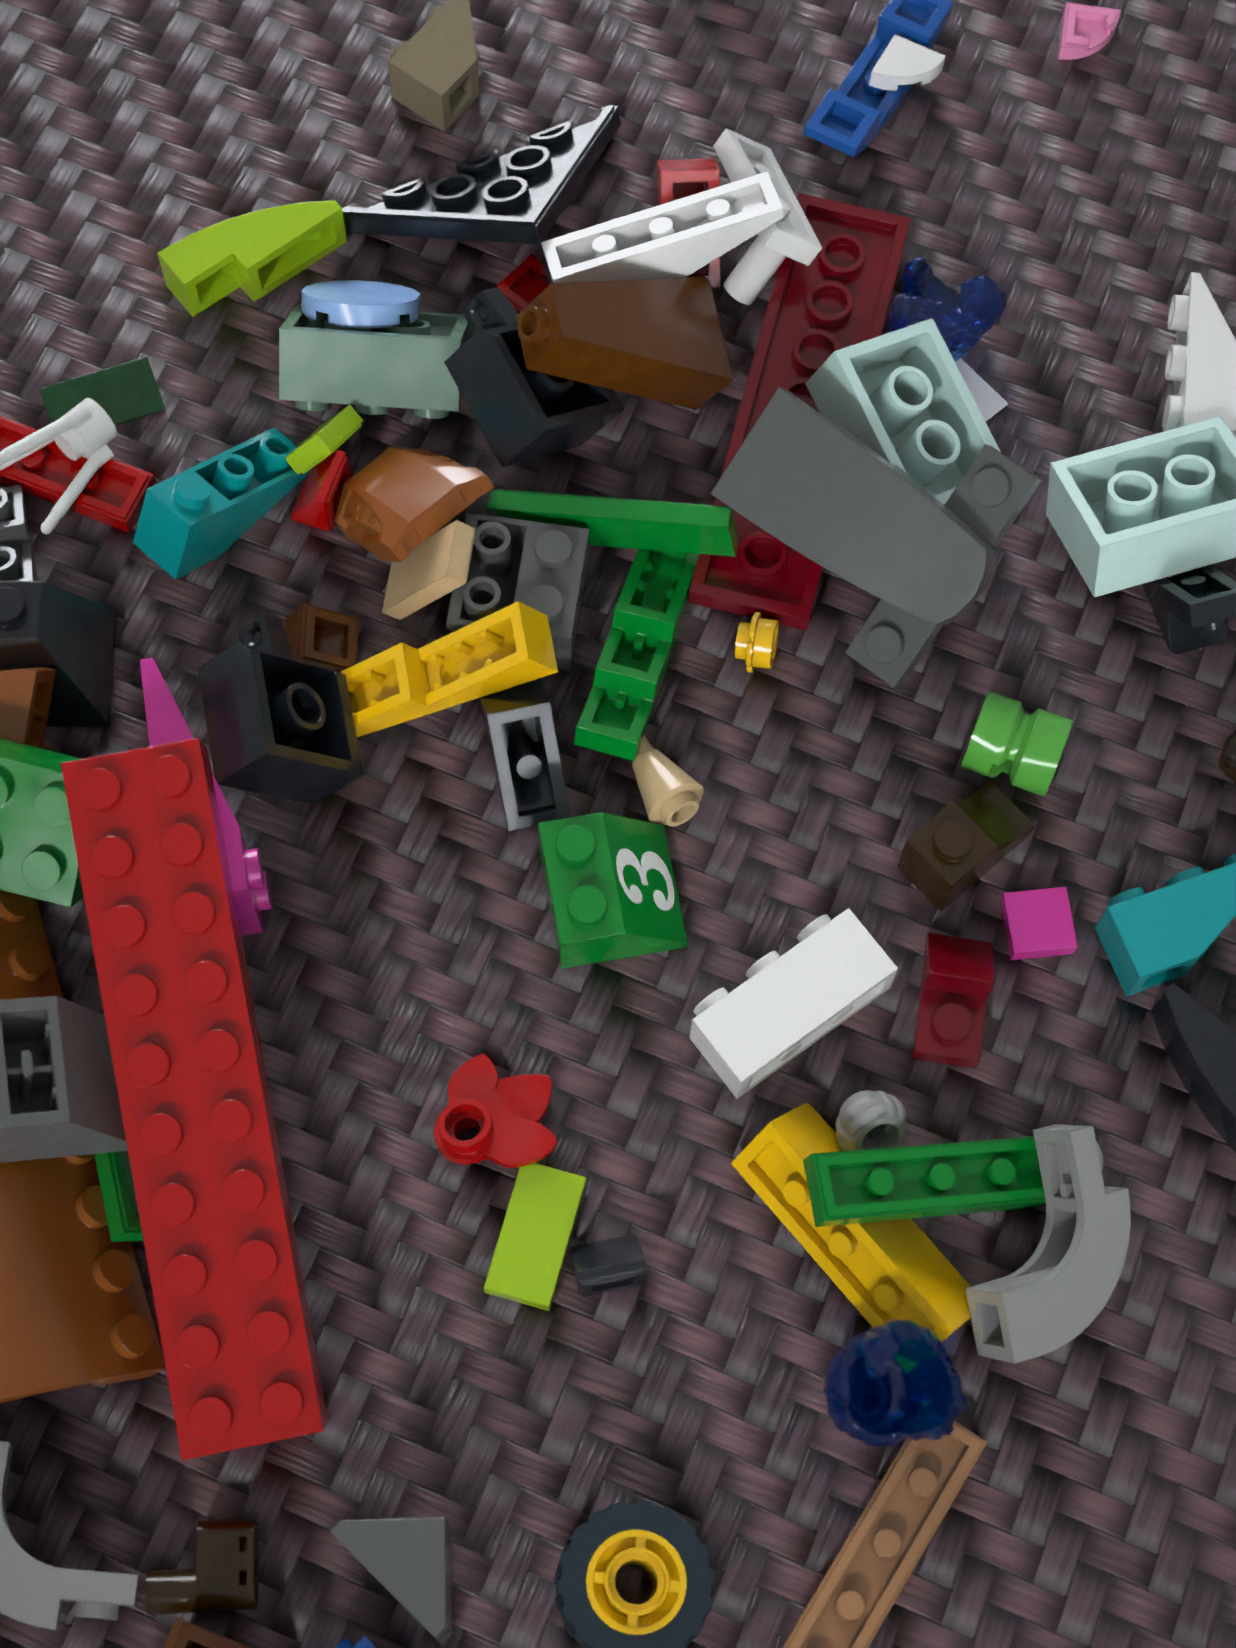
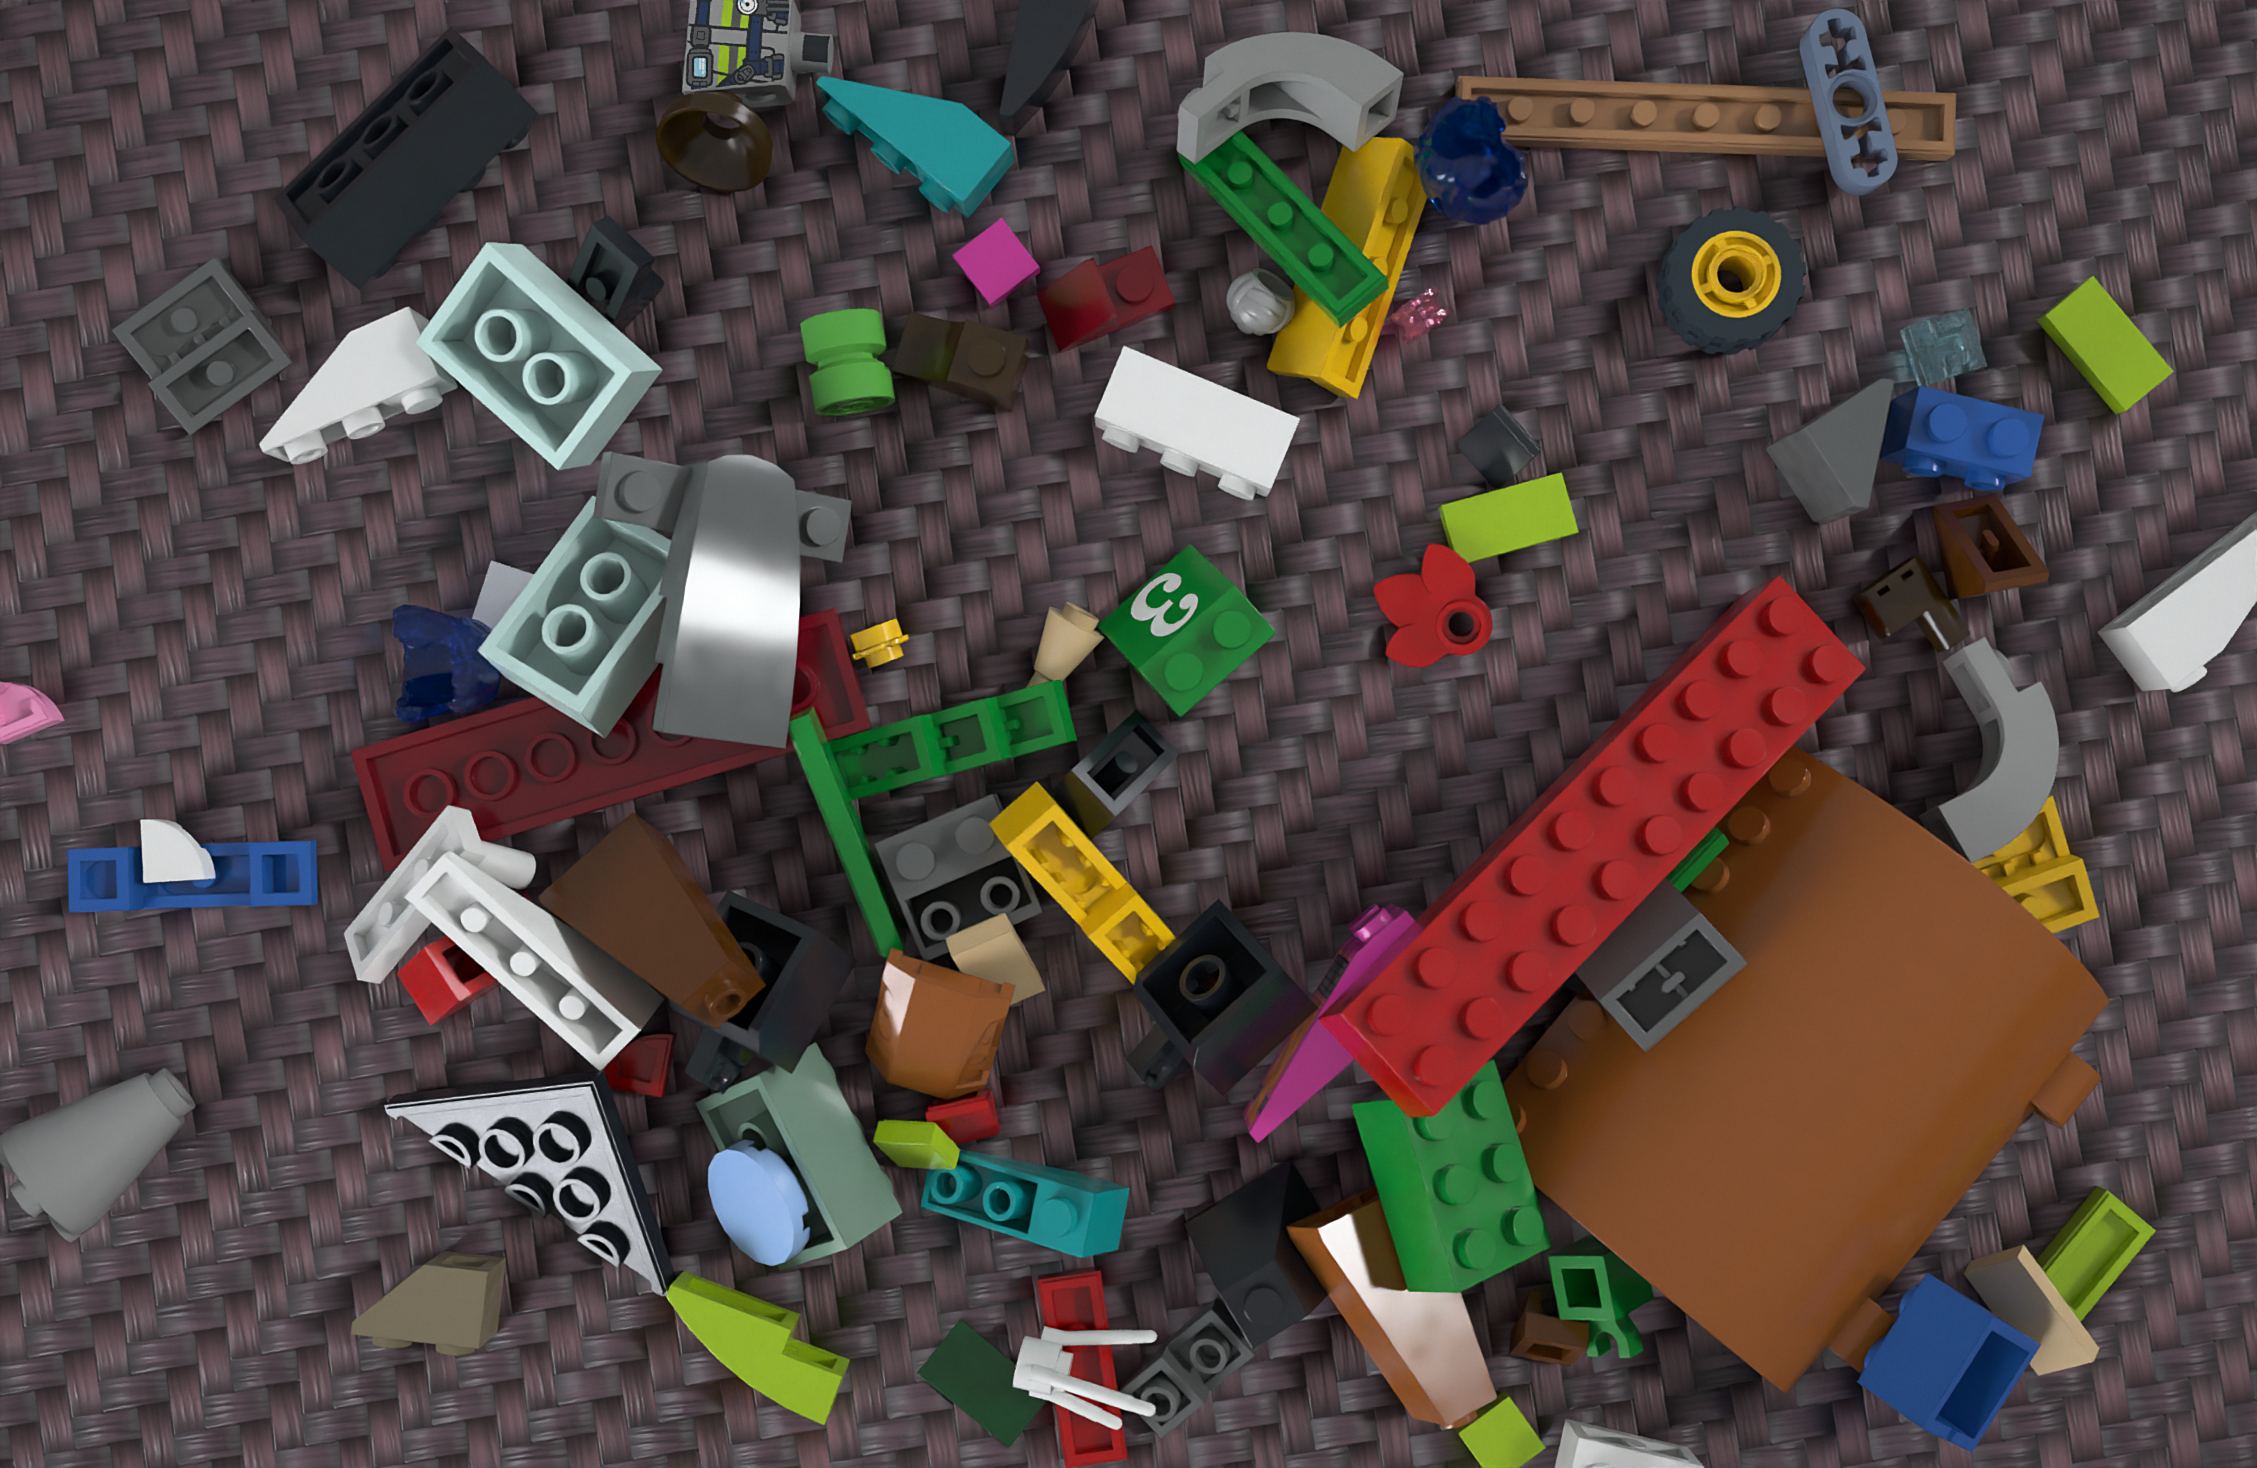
camera: 120 degrees left, 20 degrees up
(323, 636) = (1105, 1024): reddish brown slope -> none
(774, 1263) = (1421, 315): none -> clear pink bush

